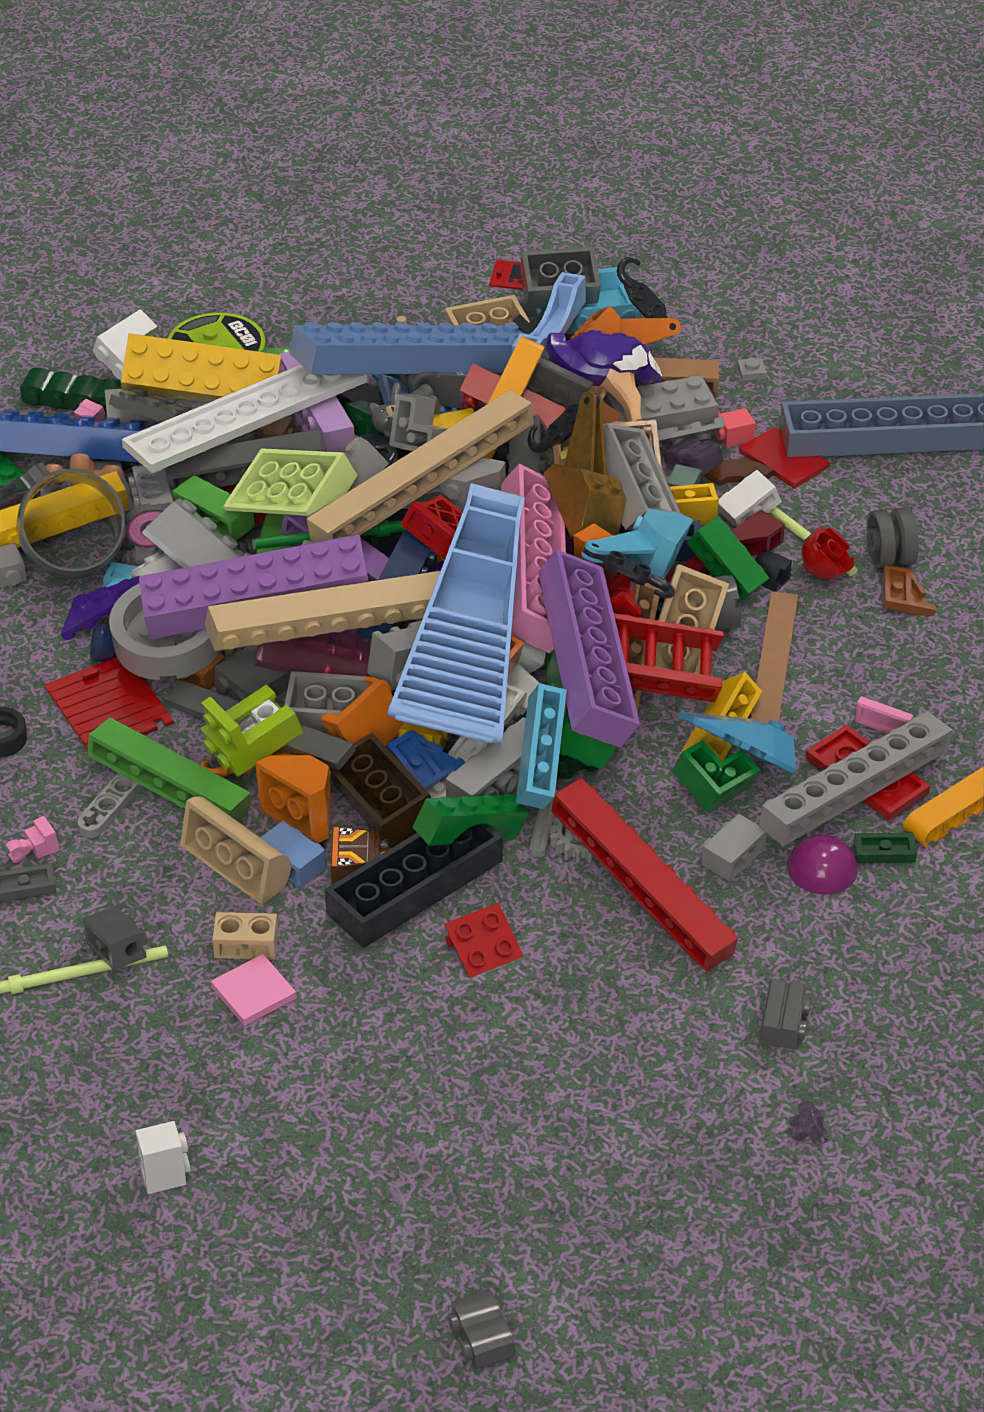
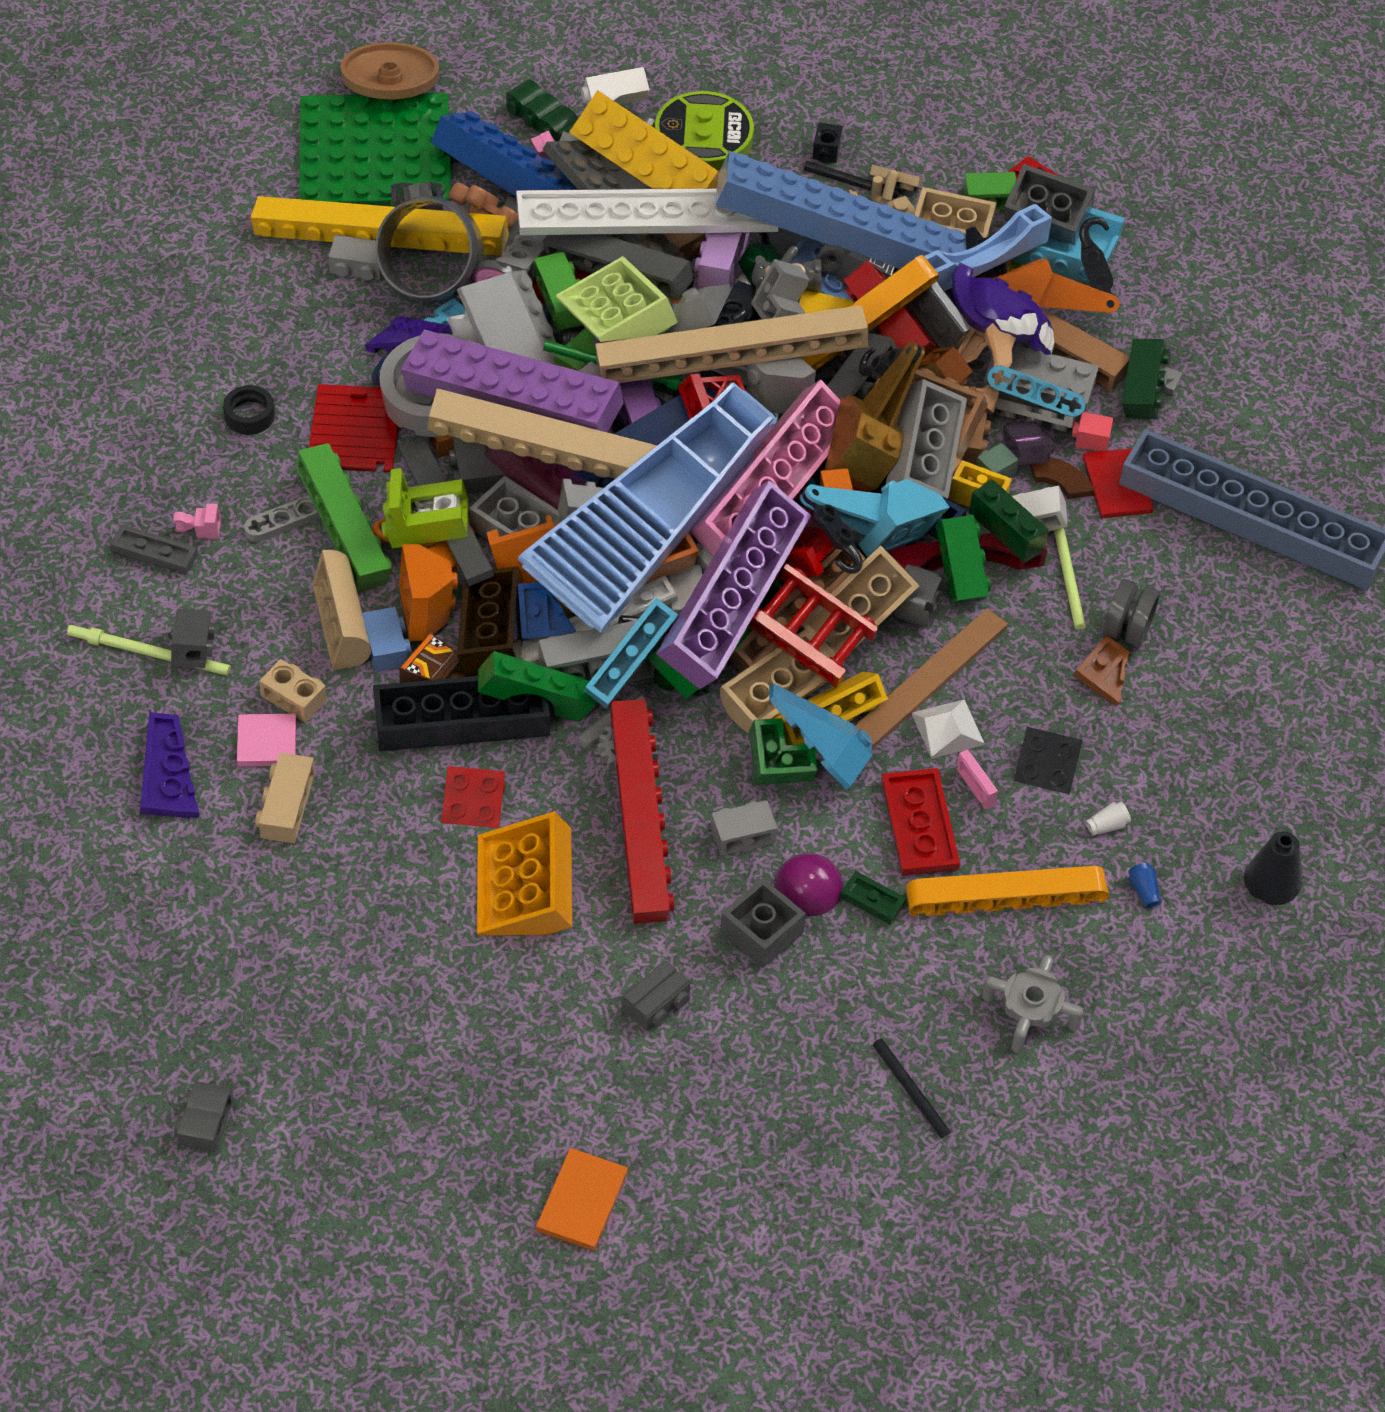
camera: 30 degrees right, 10 degrees up
(162, 1156) = (78, 841): white brick -> none
(183, 1061) = (166, 774): none -> dark purple wing
(317, 1025) = (285, 797): none -> tan brick
(328, 310) = (827, 142): none -> black brick
(413, 315) = (890, 178): none -> tan plate
(494, 287) = (990, 186): none -> bright green brick
(586, 981) = (525, 878): none -> light orange slope
(661, 734) = (748, 693): none -> tan brick
(674, 408) = (1036, 388): none -> medium azure beam
(743, 370) = (1146, 378): none -> dark green brick
(743, 511) = (1008, 521): none -> dark green brick
(777, 569) = (1004, 589): black brick -> none
(811, 1124) = (597, 1100): clear purple tile -> none
(820, 909) = (762, 922): none -> dark grey brick
(821, 695) = (947, 729): none -> white slope
(826, 554) = (1061, 598): red cylinder -> none
(854, 778) = (878, 830): light grey brick -> none
(868, 1211) = (582, 1199): none -> orange tile
(923, 677) = (1048, 760): none -> black hinge

